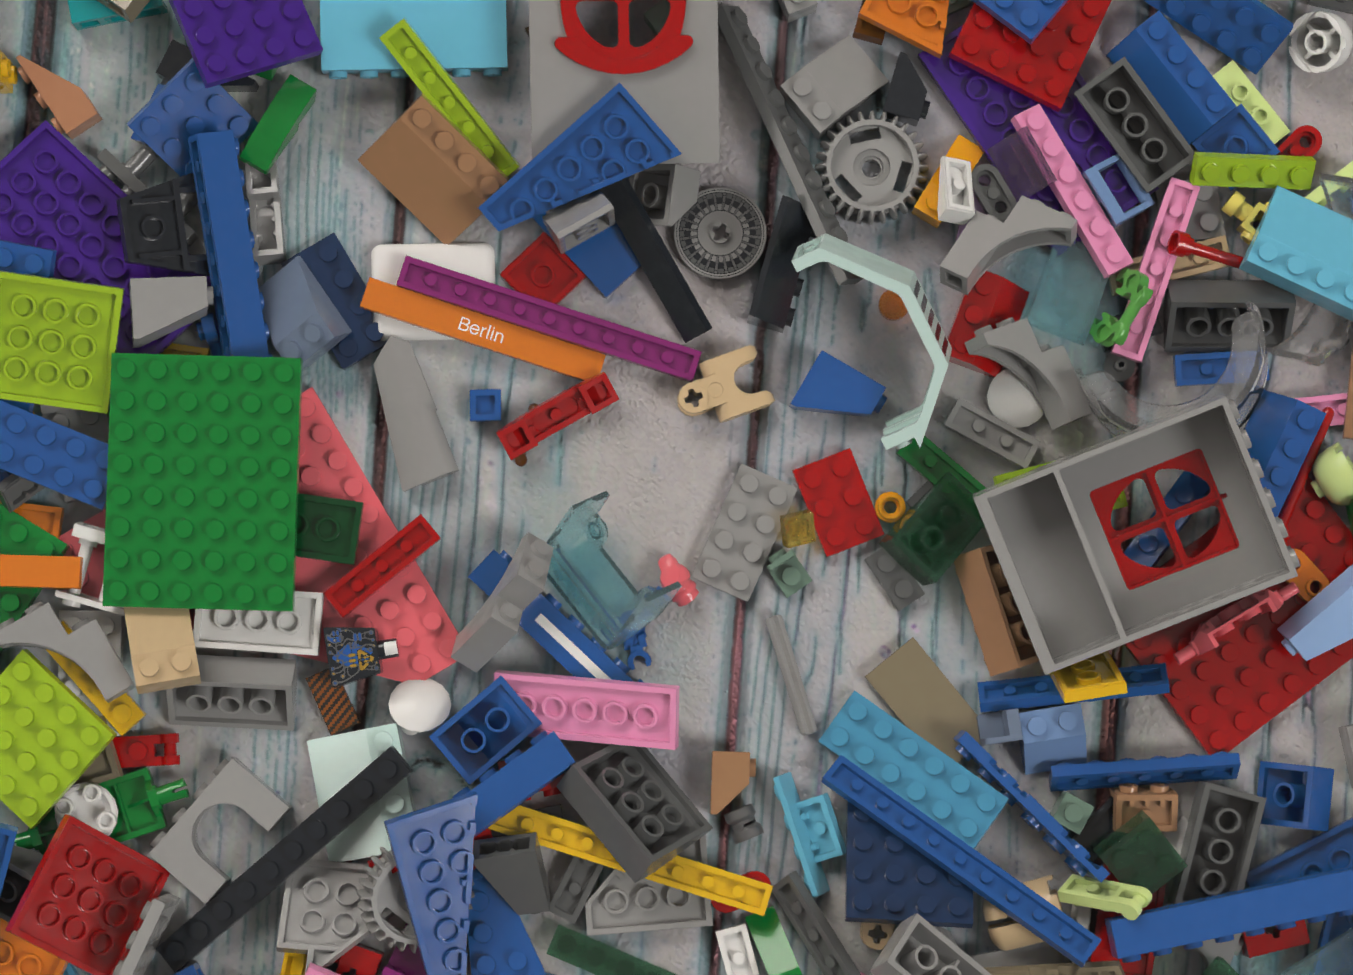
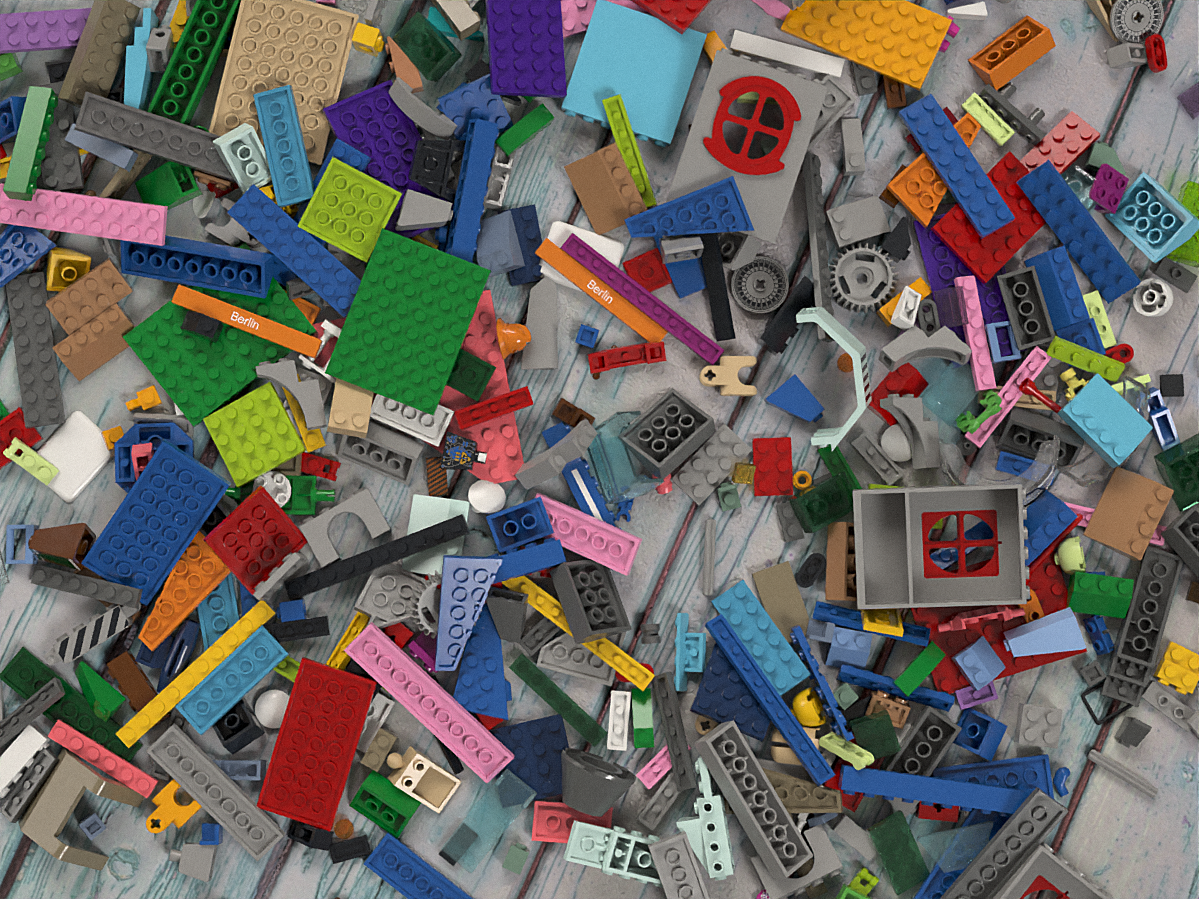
camera: 20 degrees right, 0 degrees up
(83, 51) = (427, 47): none -> clear green slope
(106, 154) = (420, 112): none -> light grey slope
(370, 448) = (511, 337): none -> orange piece
(503, 532) = (571, 414): none -> reddish brown slope
(661, 509) = (668, 433): none -> dark grey slope
(729, 777) = (651, 603): medium nougat slope -> none
(952, 640) = (810, 570): none -> black plate
(1023, 852) = (808, 708): none -> yellow cylinder
(1169, 731) = (919, 669): none -> green slope
(1256, 690) = (978, 663): none -> medium blue slope
(1269, 738) = (968, 697): none -> medium lavender plate

